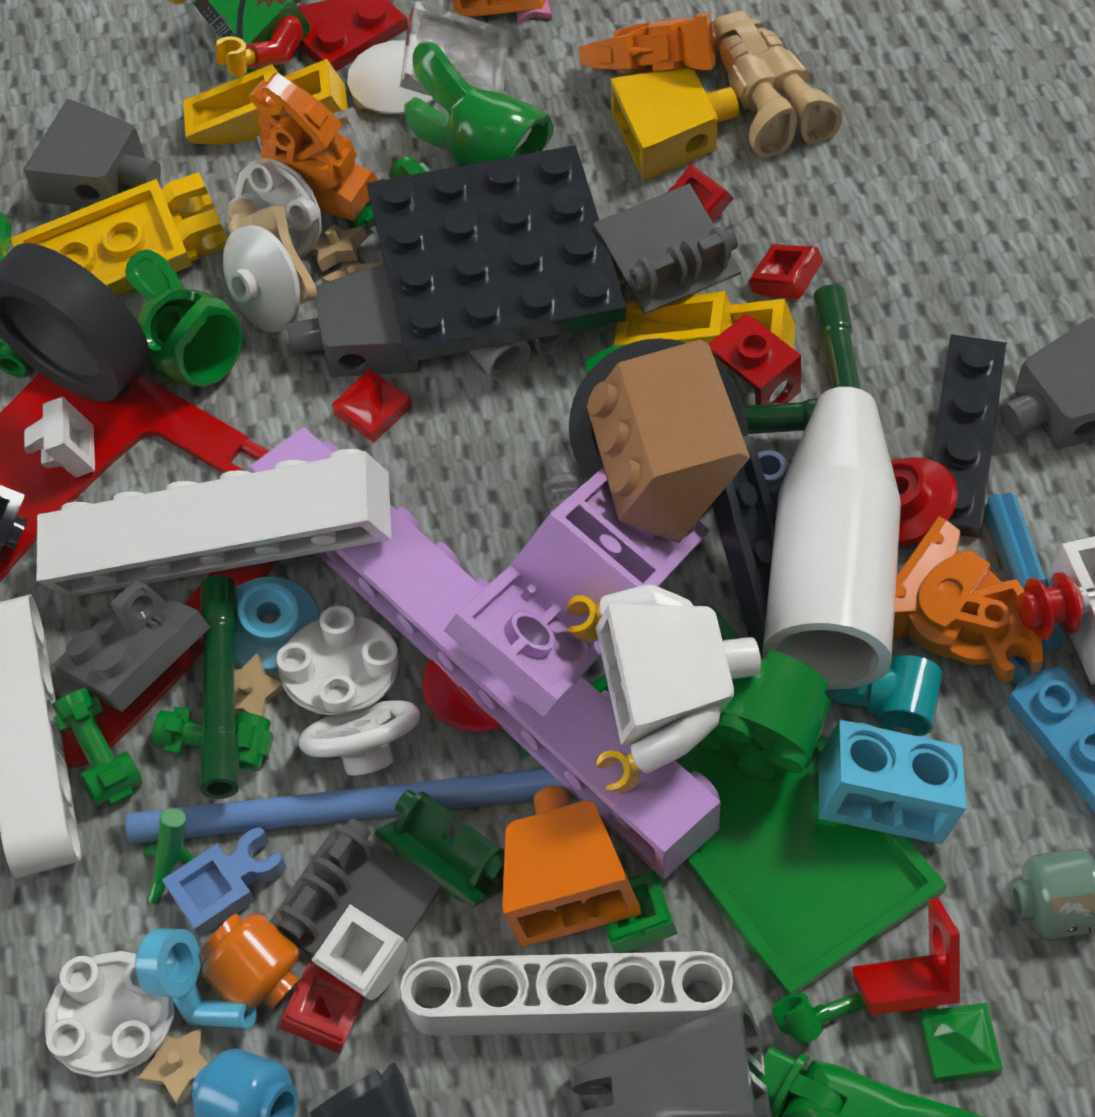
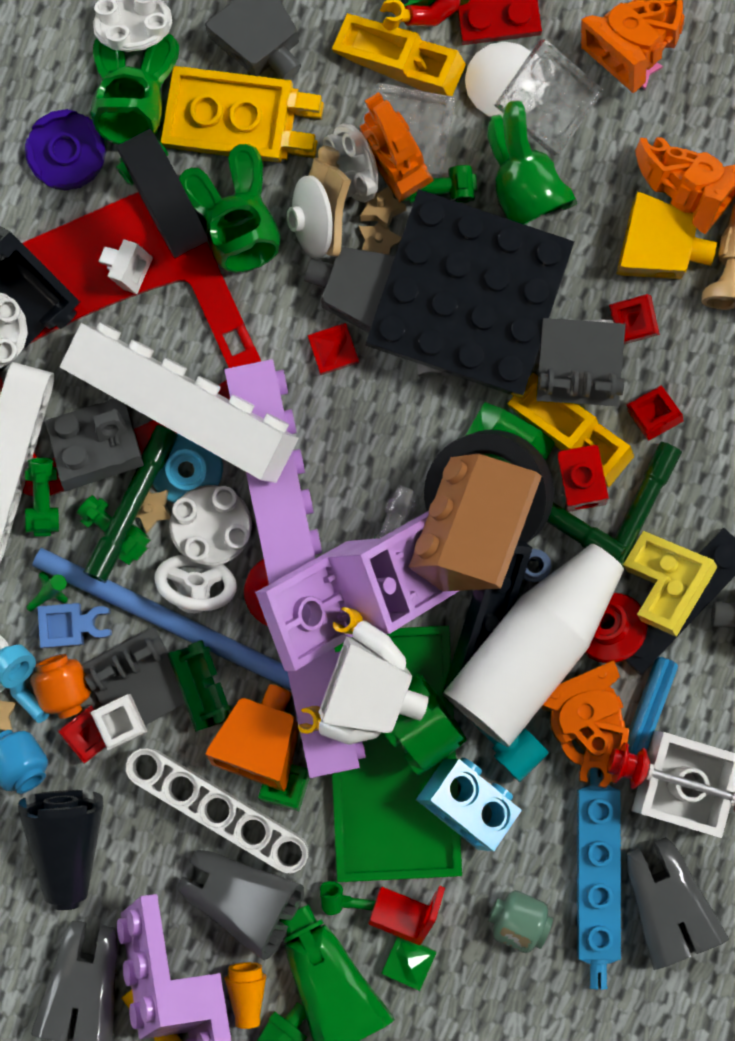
camera: 25 degrees right, 25 degrees up
(943, 398) = (677, 576): none -> light yellow plate

